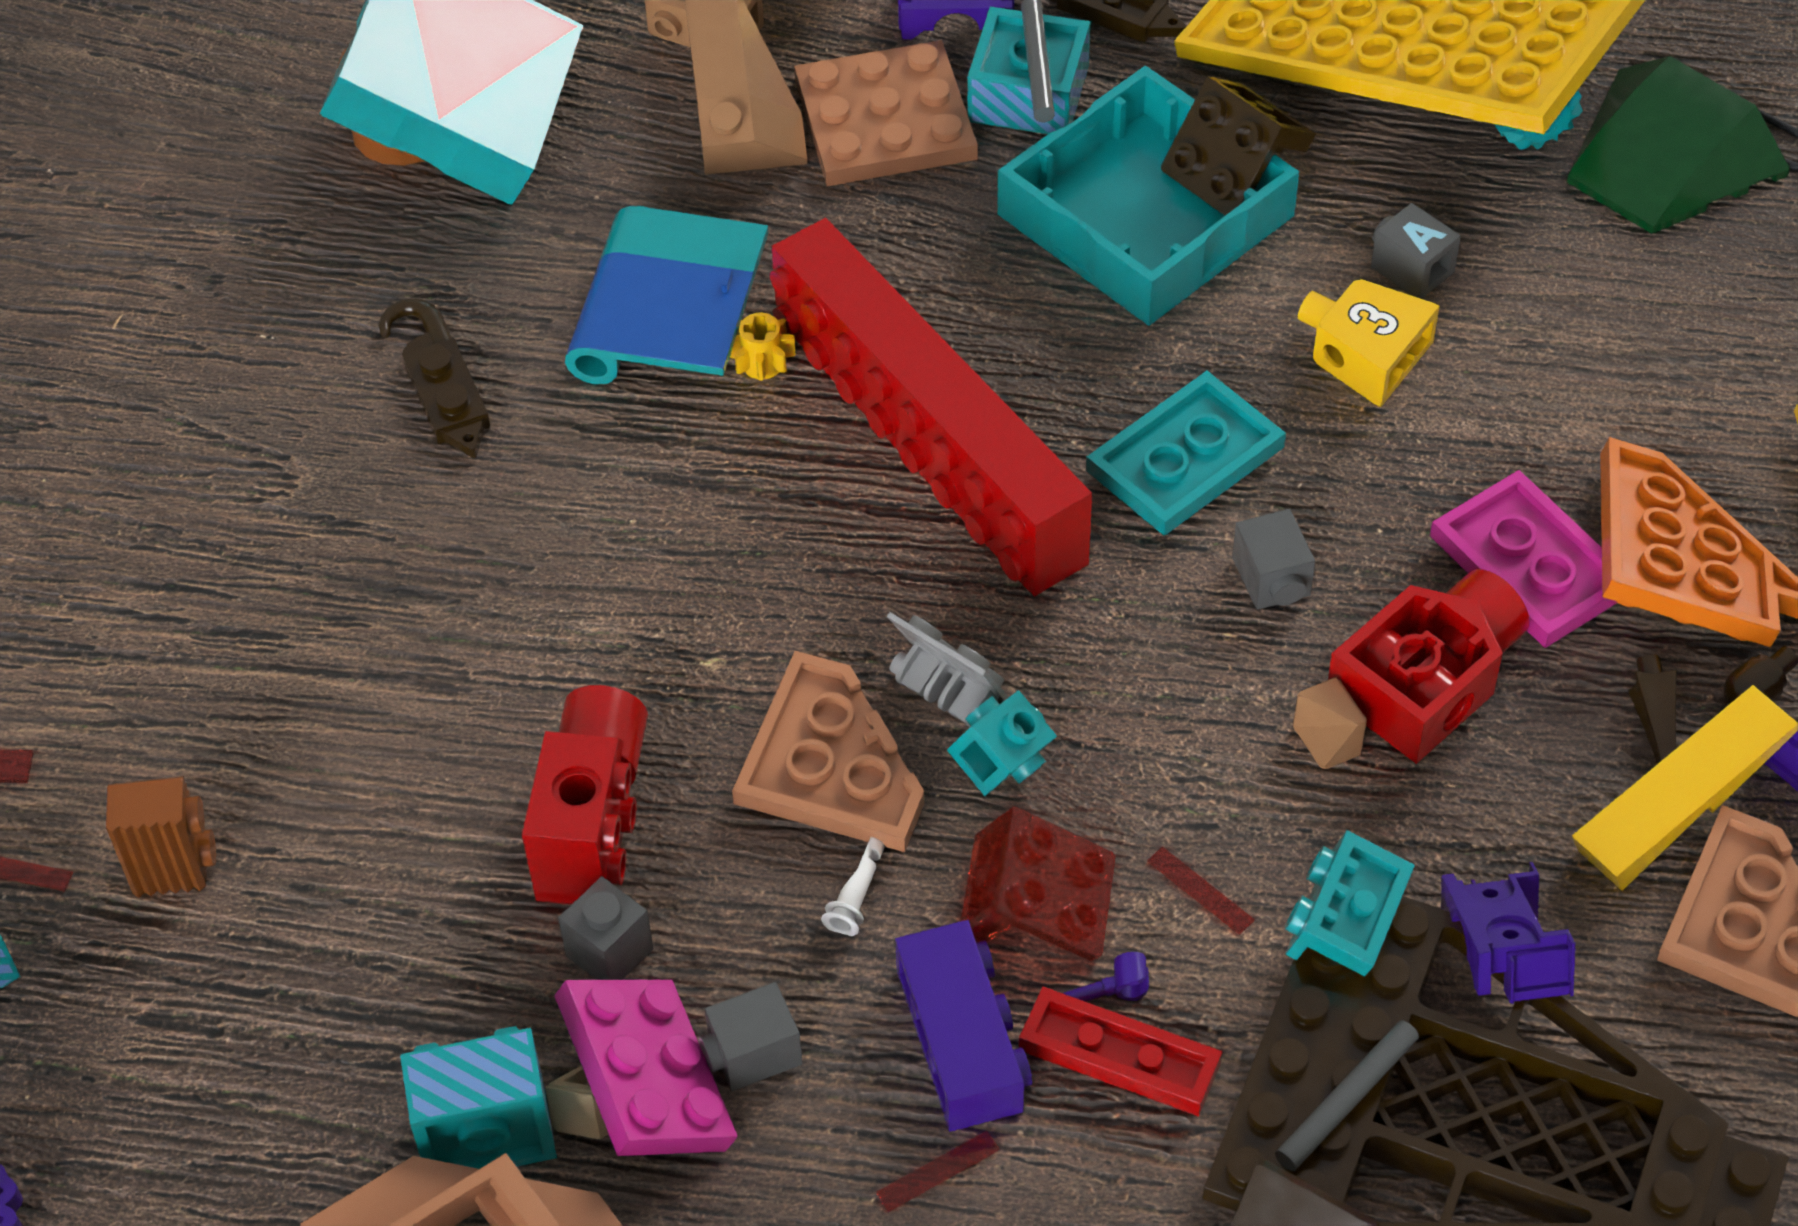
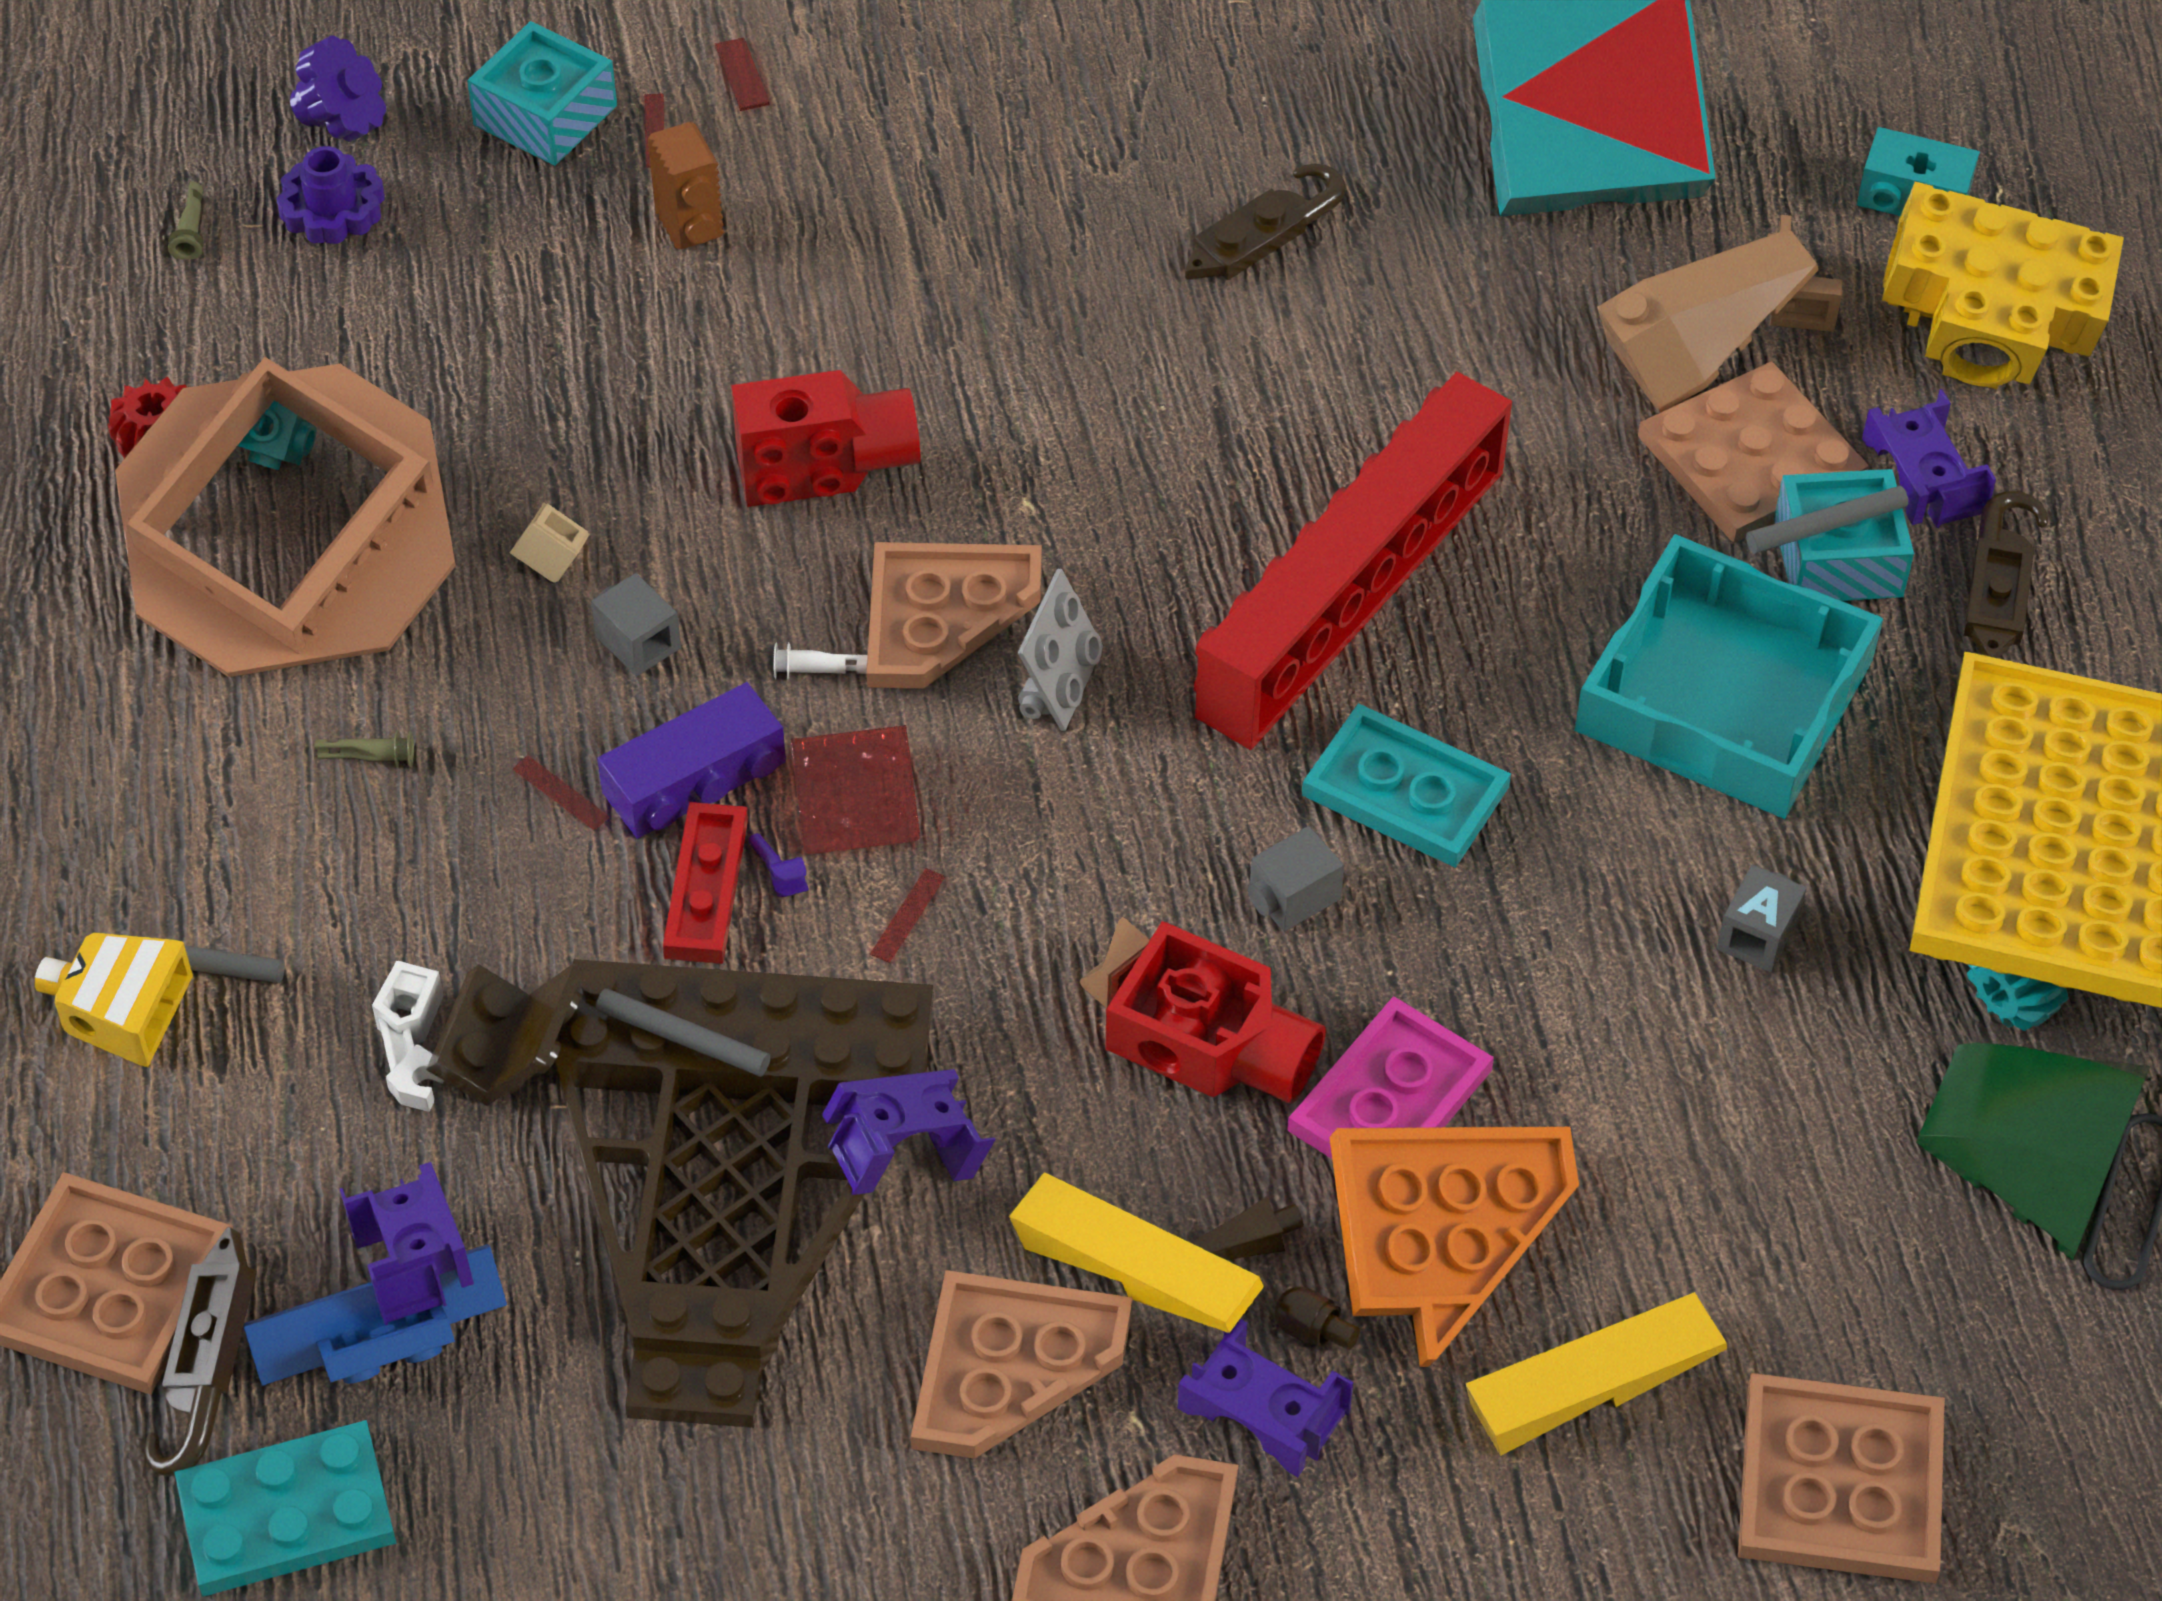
camera: 70 degrees right, 0 degrees up
(479, 1100) = (499, 454): teal container -> none
(606, 932) = (701, 498): dark grey brick -> none
(645, 1067) = (574, 553): dark pink plate -> none
(666, 293) = (1414, 337): blue door -> none
(762, 346) = (1379, 424): yellow gear -> none
(1002, 742) = (984, 695): teal brick -> none
(1230, 143) = (1834, 711): dark brown bracket -> none
(1350, 903) = (878, 988): teal bracket -> none
(1370, 336) = (1621, 903): yellow torso -> none

